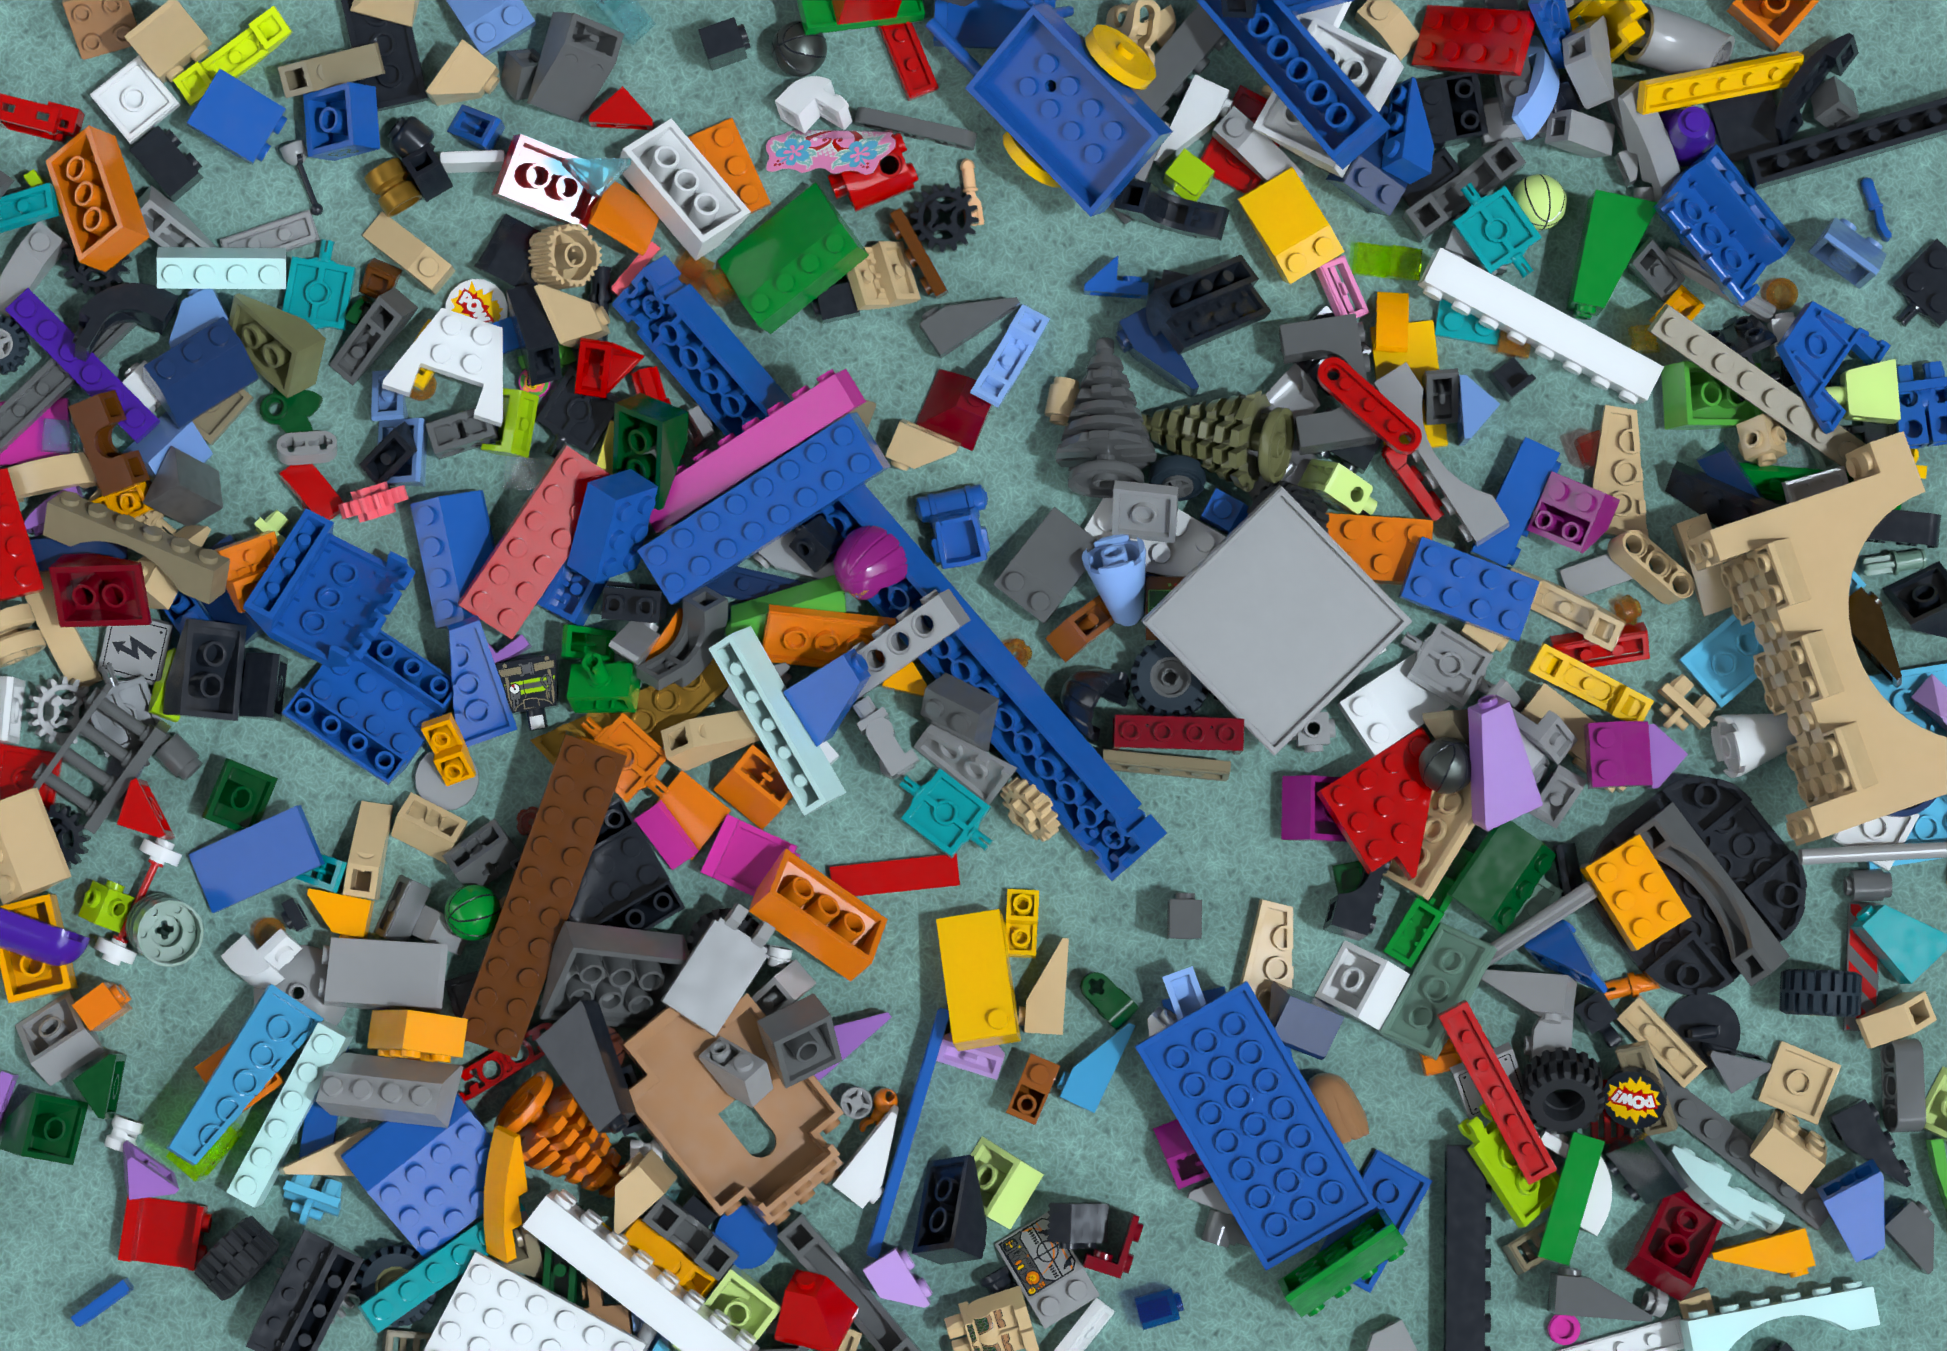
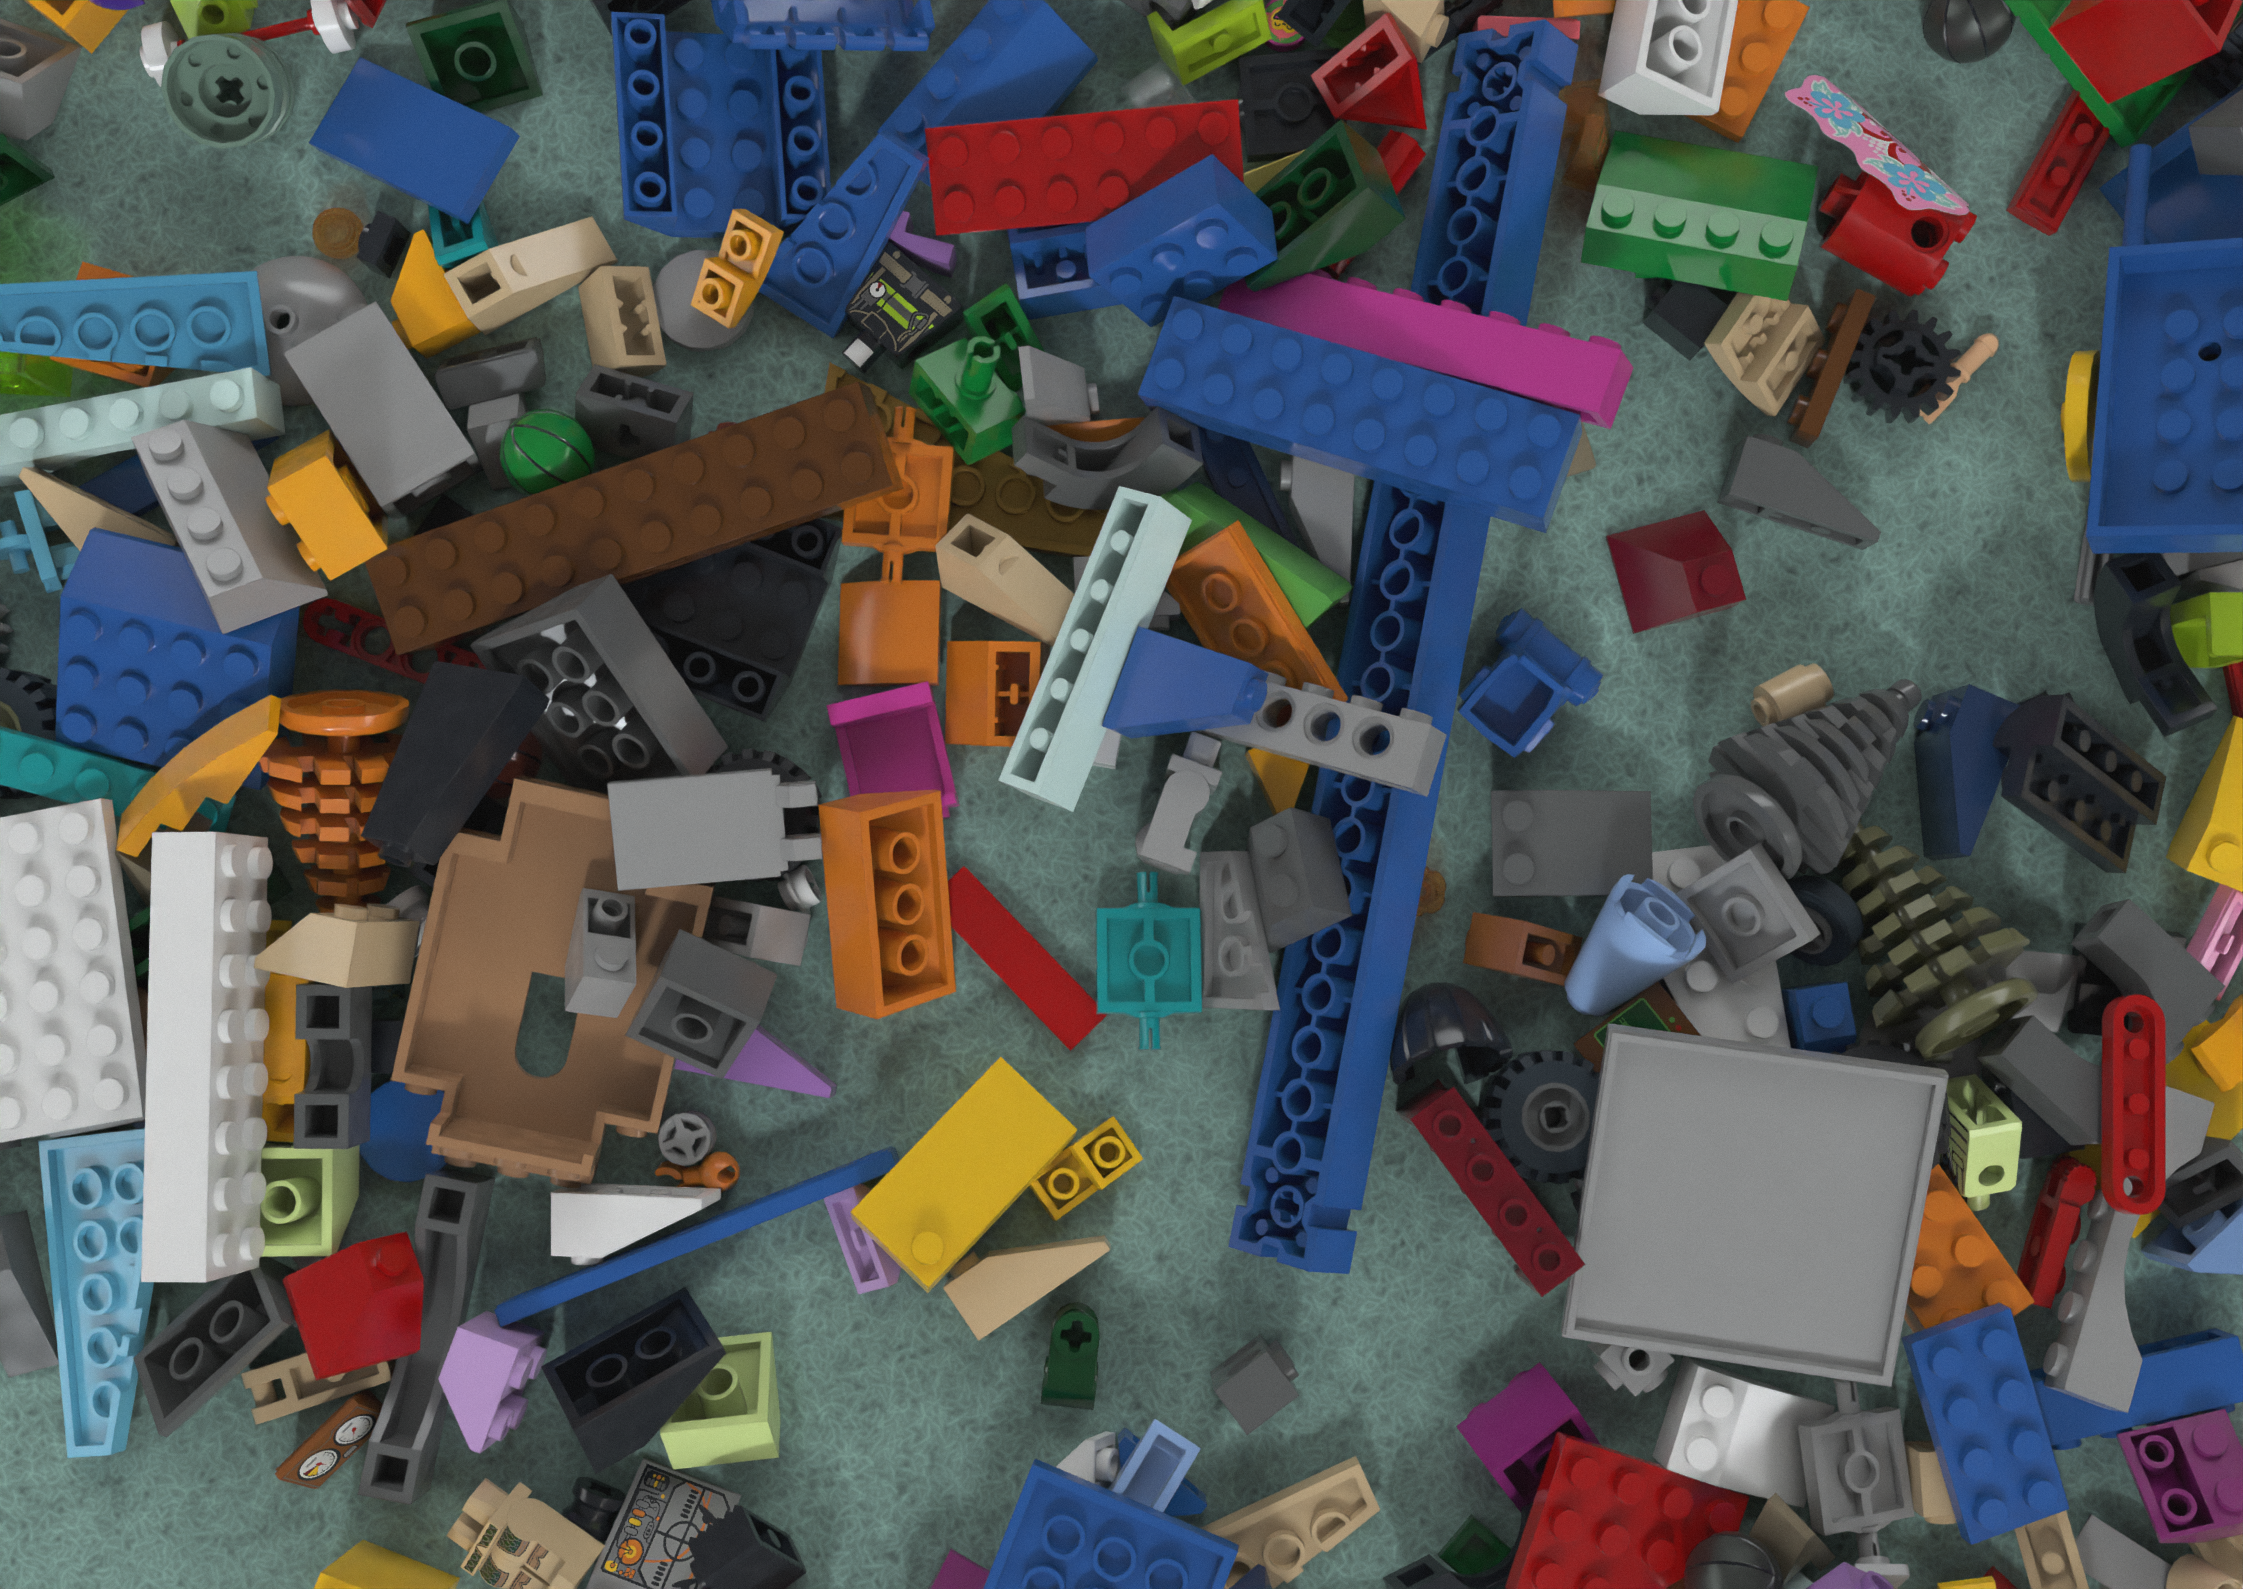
camera: 50 degrees right, 0 degrees up
(103, 1005) = (75, 89): orange brick -> none
(261, 964) = (288, 245): white brick -> none
(627, 603) = (1102, 350): black hips -> none
(666, 835) = (843, 627): dark pink tile -> none
(699, 426) = (1392, 262): light grey plate -> none
(808, 100) = (1912, 82): white brick -> none
(816, 542) = (1365, 522): black brick -> none
(869, 562) = (1398, 604): magenta hair -> none
(915, 128) = (1989, 250): dark grey beam -> none
(918, 446) = (1587, 557): tan slope -> none
(1010, 356) = (1799, 585): light blue slope -> none
(1030, 809) = (1239, 1068): tan gear -> none
(1033, 1089) = (879, 1355): dark orange slope -> none
(1092, 1074) = (961, 1417): dark azure slope -> none
(1106, 284) = (1985, 639): blue slope -> none
(1167, 765) = (1436, 1201): dark tan tile -> none

